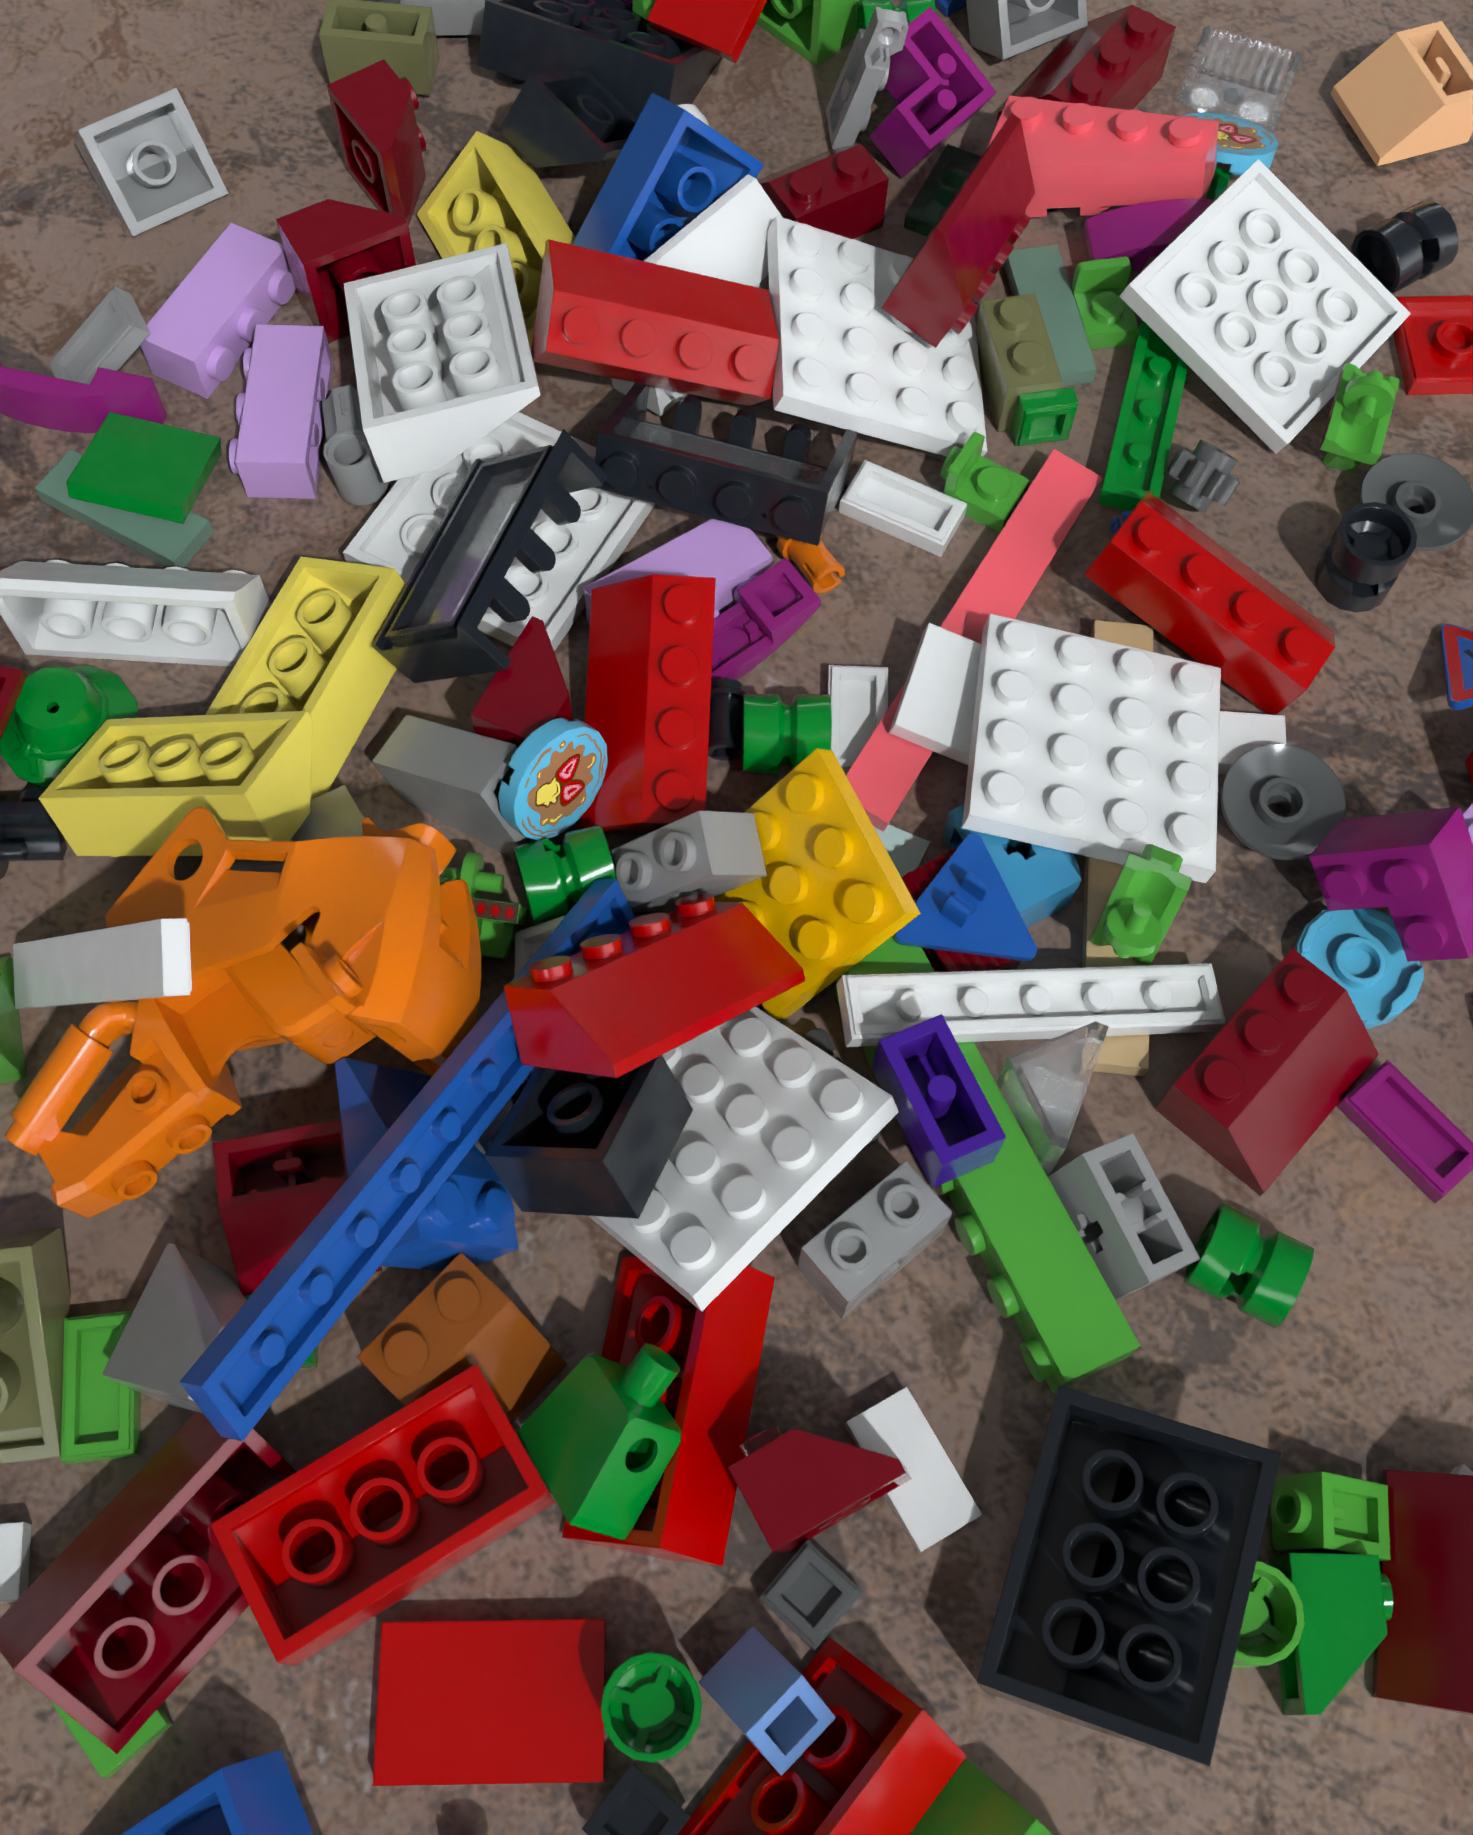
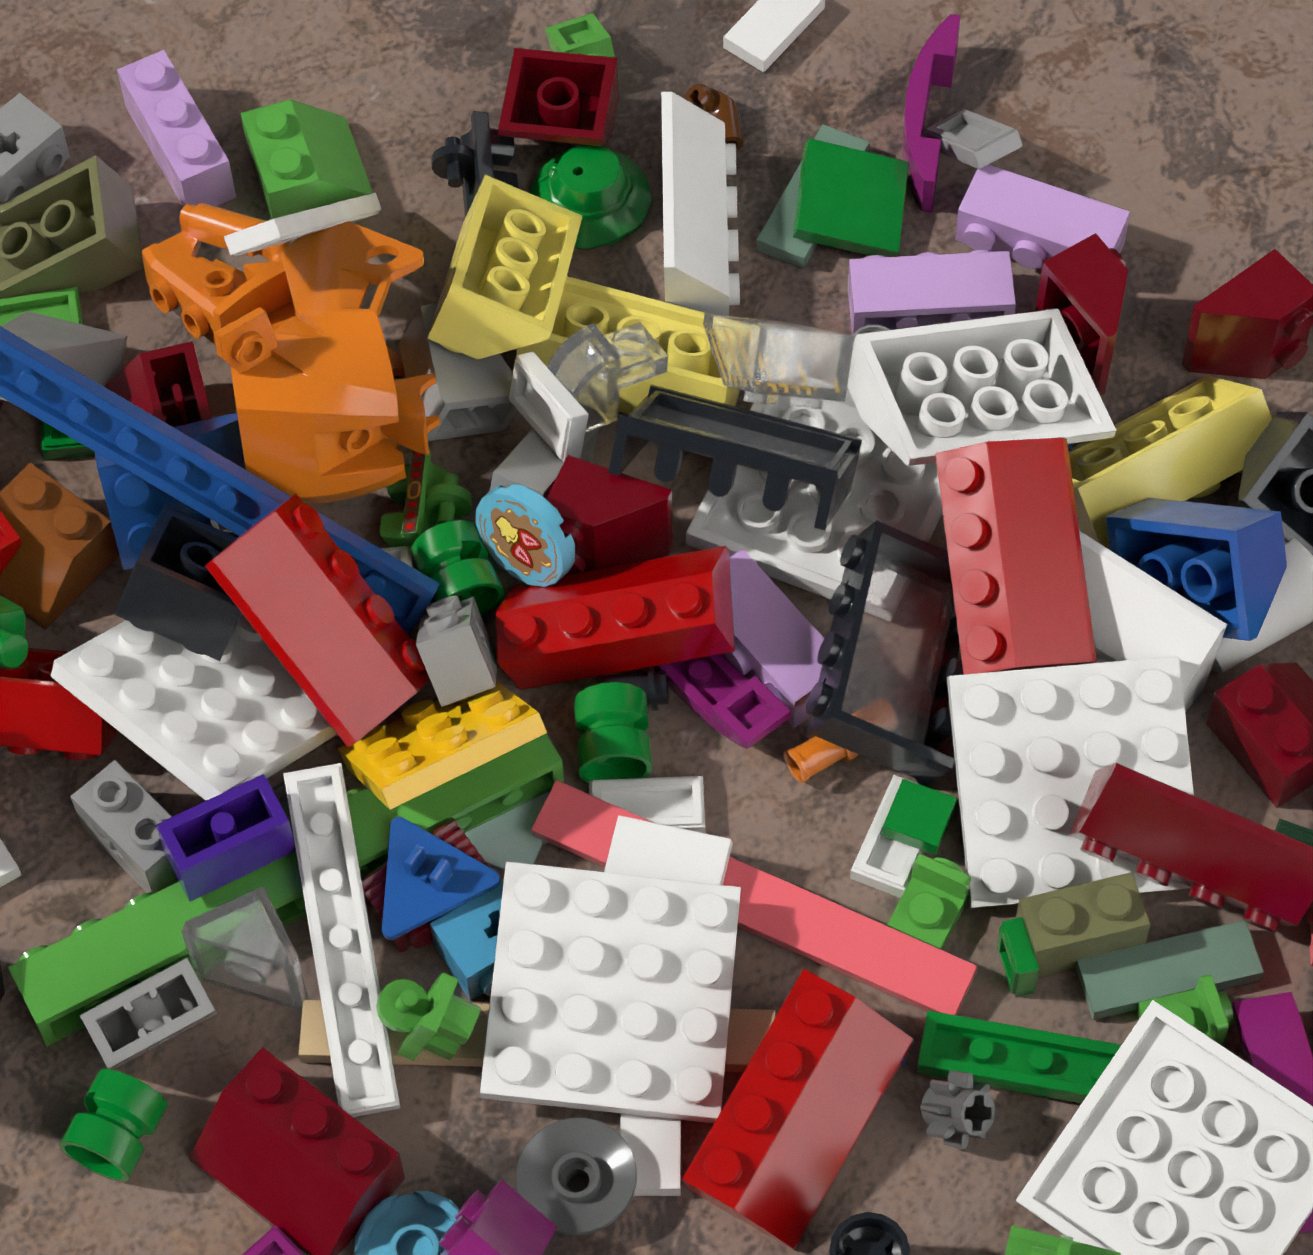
camera: 90 degrees right, 5 degrees down
(150, 162) = (1214, 140): light grey slope -> none
(359, 687) = (599, 365): none -> clear brick
(363, 517) = (780, 359): none -> clear slope
(390, 740) = (548, 406): none -> white tile
(896, 475) = (919, 816): none -> green tile

